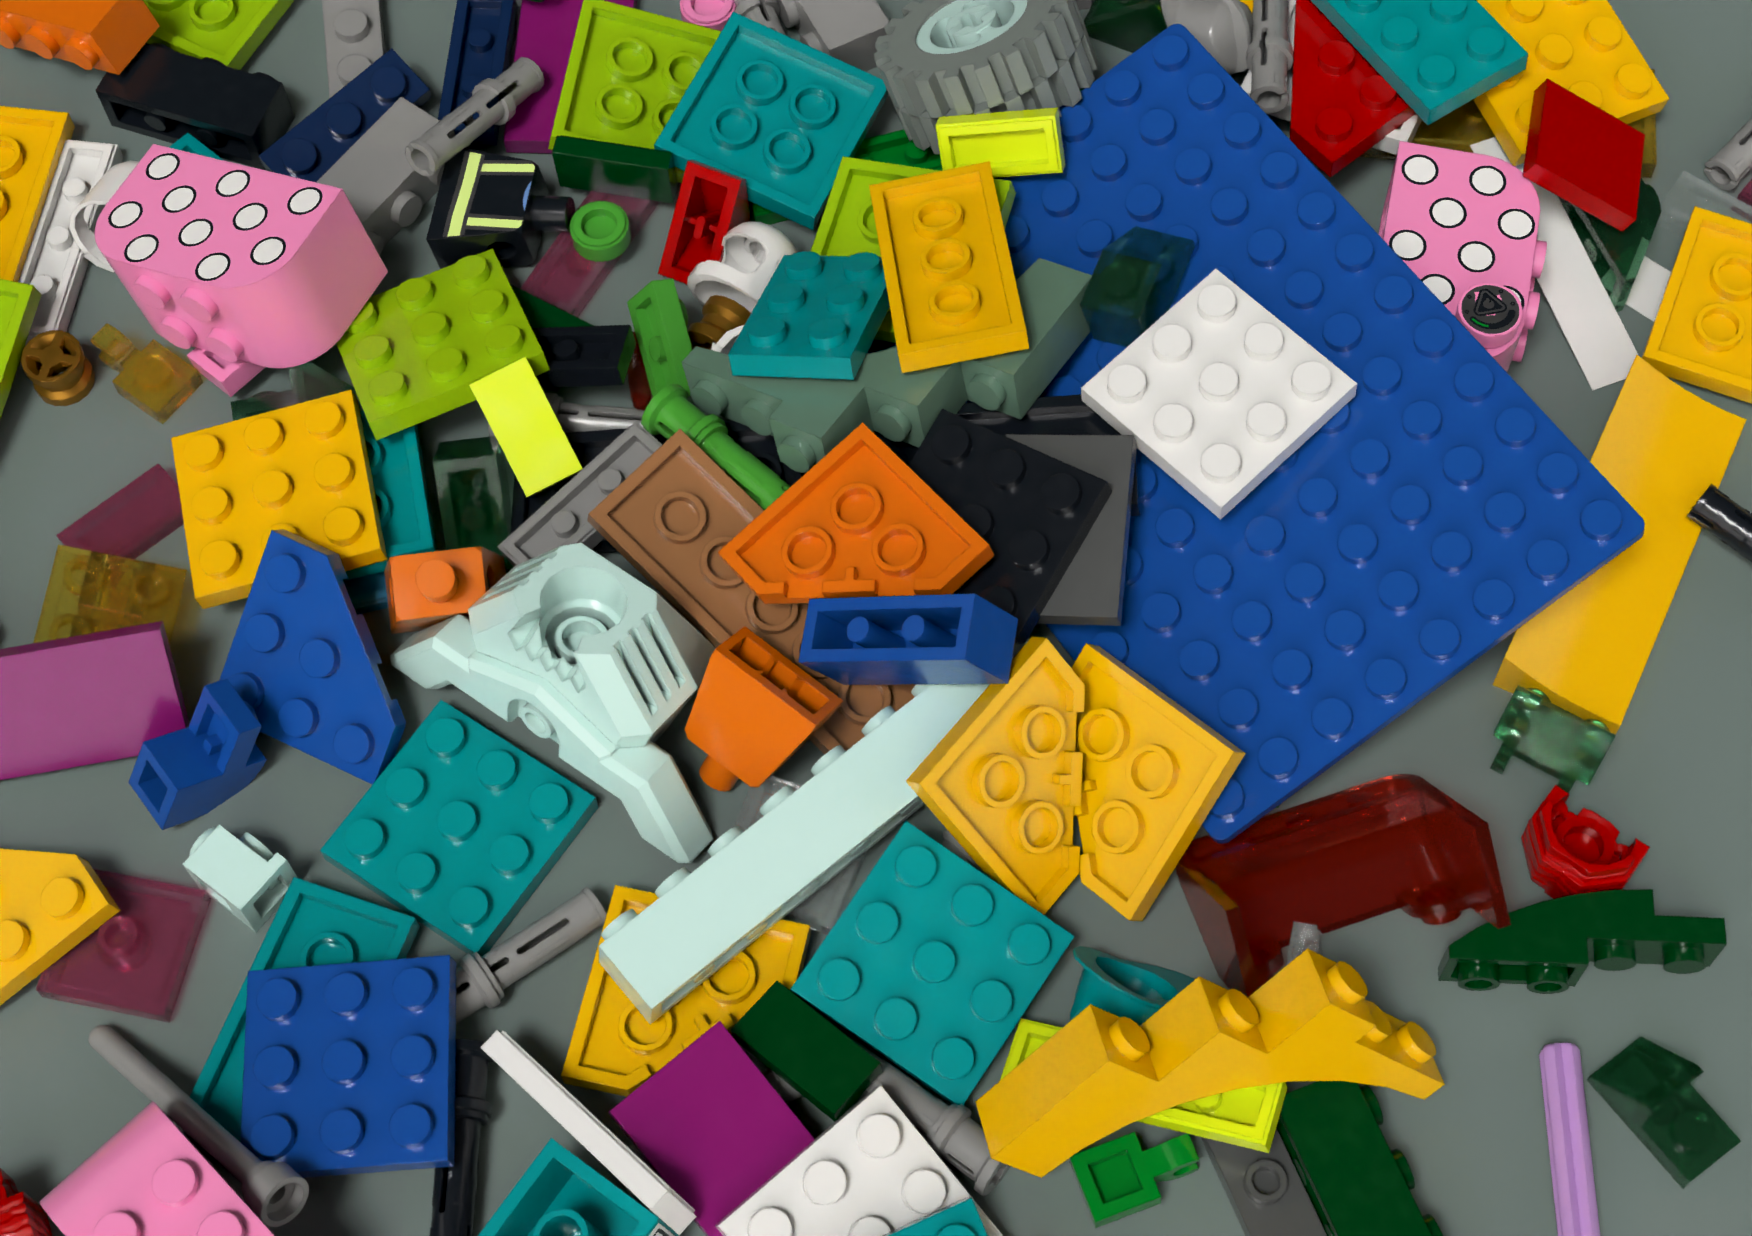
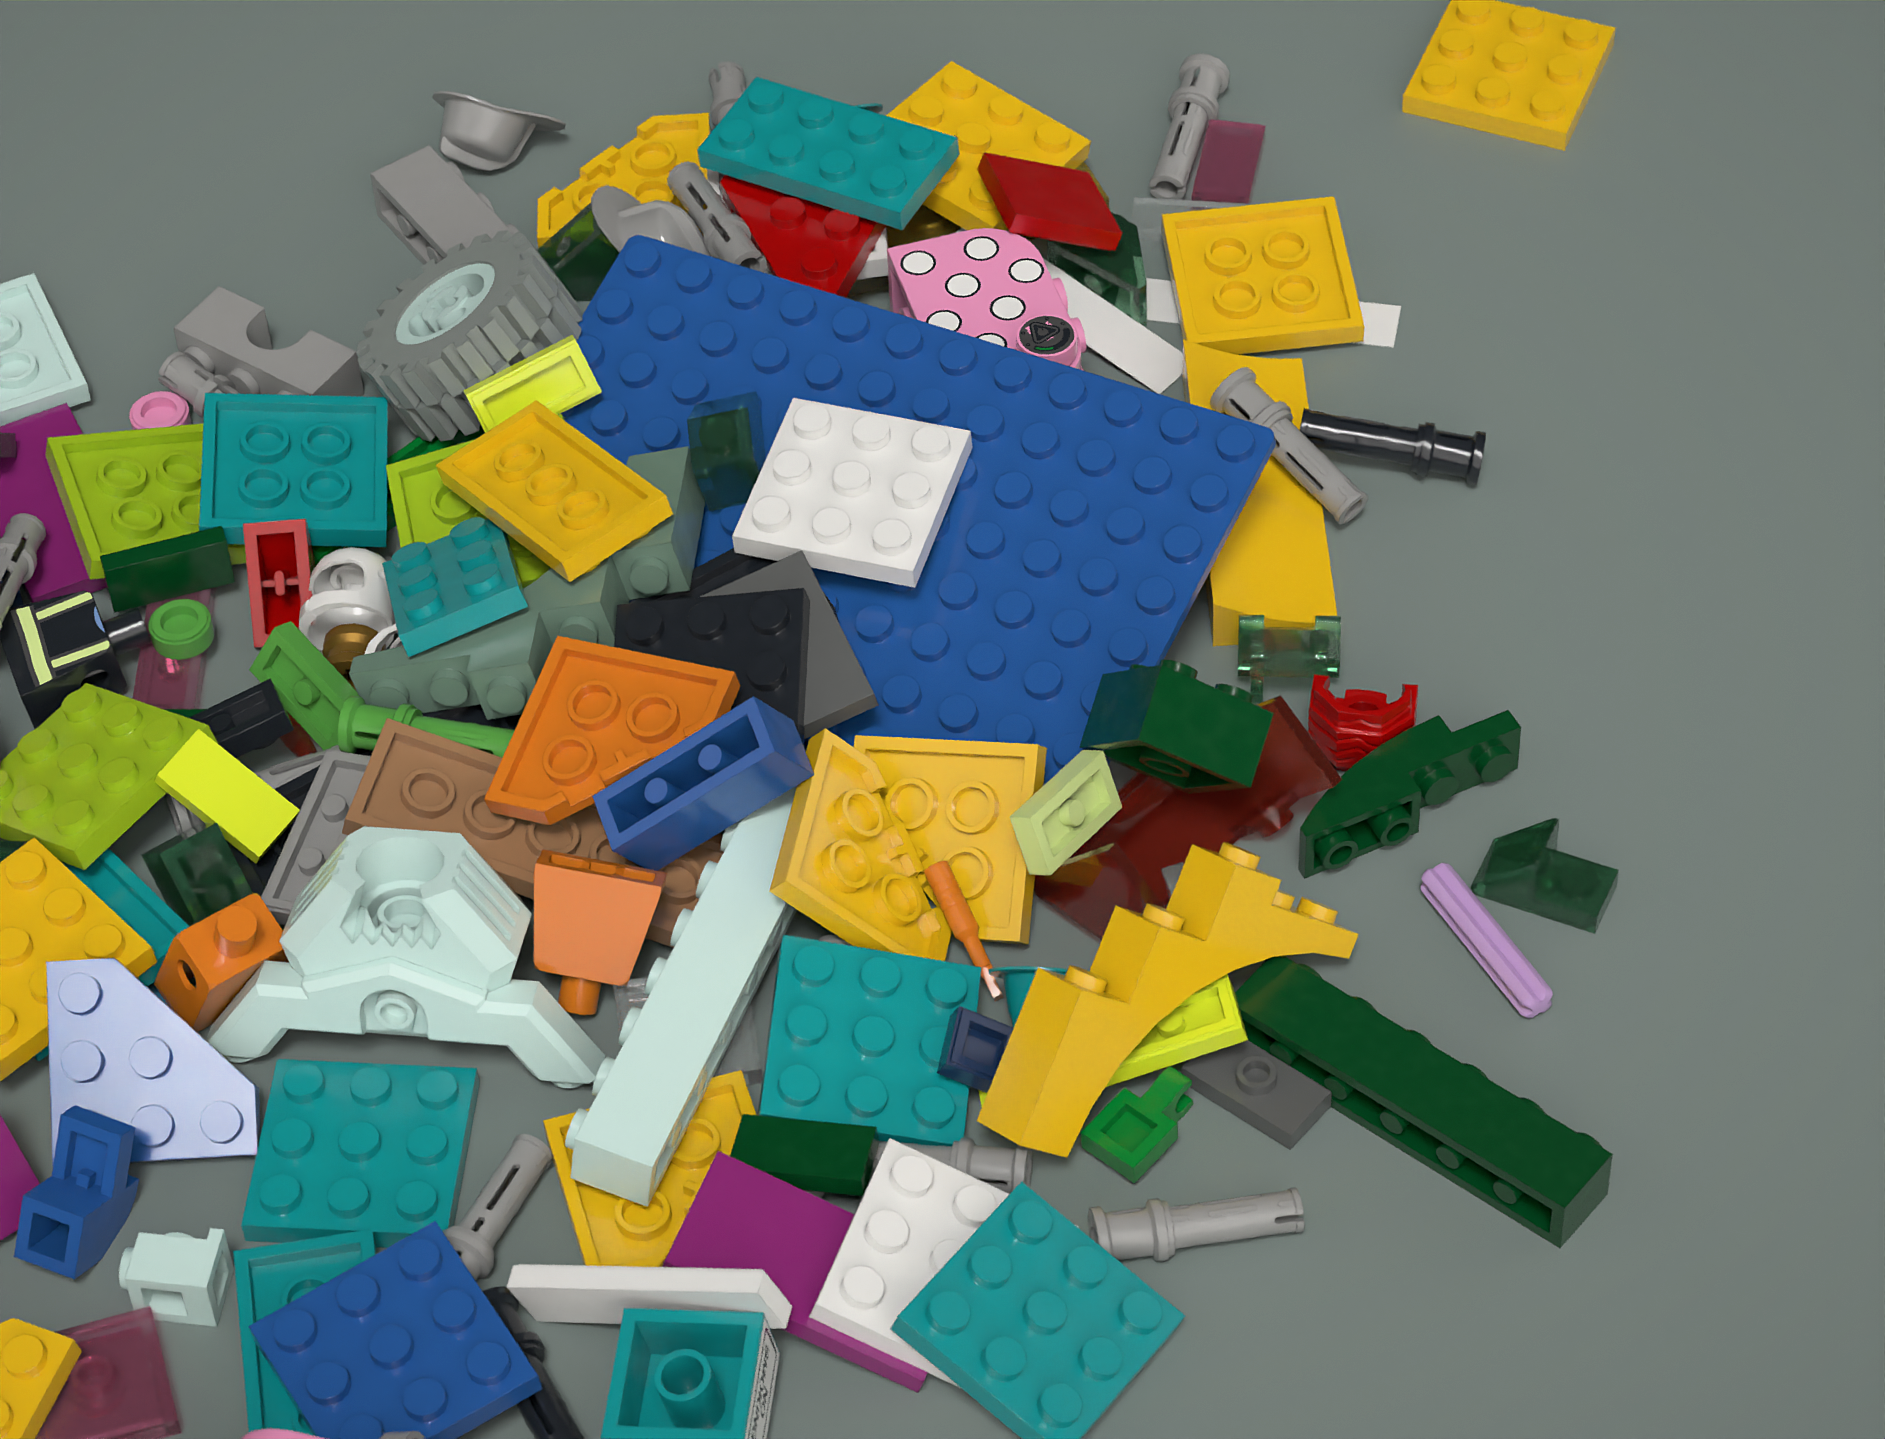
camera: 30 degrees left, 15 degrees down
(1017, 1023) = (973, 1048): none -> dark blue tile
(1088, 871) = (961, 919): none -> orange piece
(1229, 827) = (1066, 812): none -> yellowish green plate
(1375, 800) = (1178, 727): none -> dark green brick
(1667, 491) = (1245, 400): none -> light grey pin

